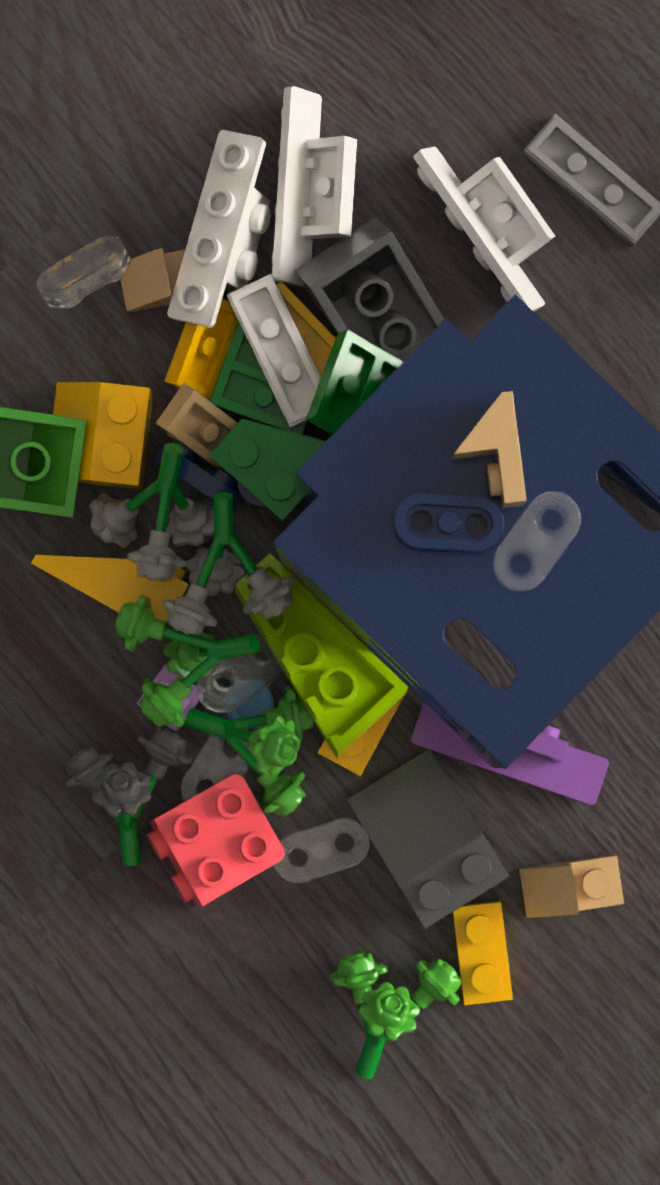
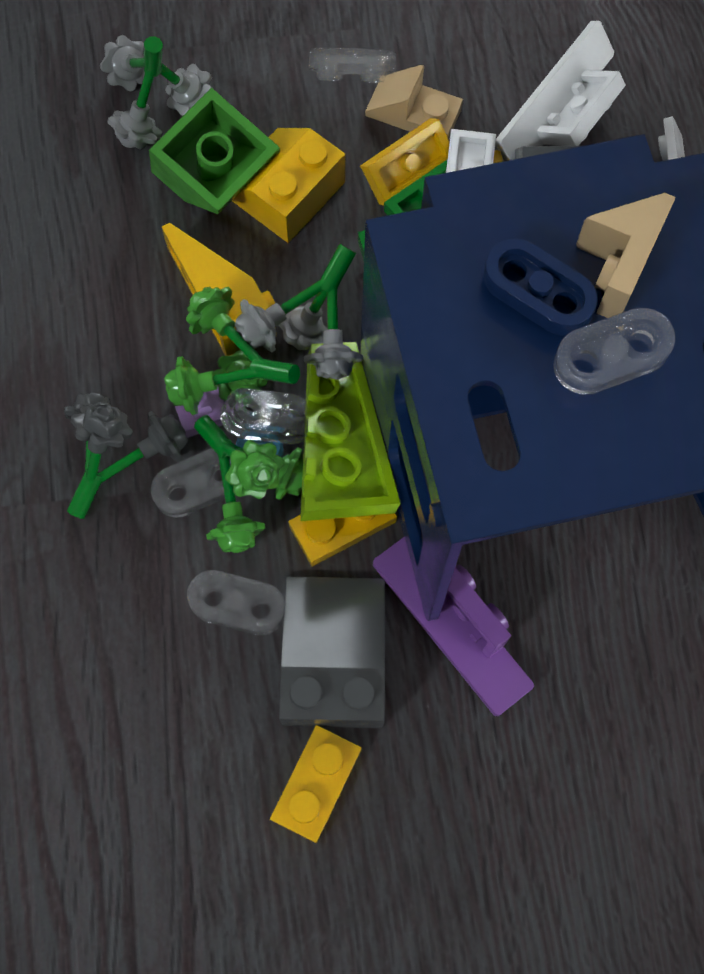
camera: 30 degrees right, 15 degrees down
(189, 522) = (260, 265): light grey plant -> none
(196, 423) = (360, 198): tan slope -> none
(197, 478) = (330, 232): dark blue plate -> none
(215, 841) = (153, 532): coral bracket -> none
(223, 231) = (482, 88): white bracket -> none
(389, 1010) = (198, 771): bright green plant -> none
(571, 886) = (433, 775): tan slope -> none

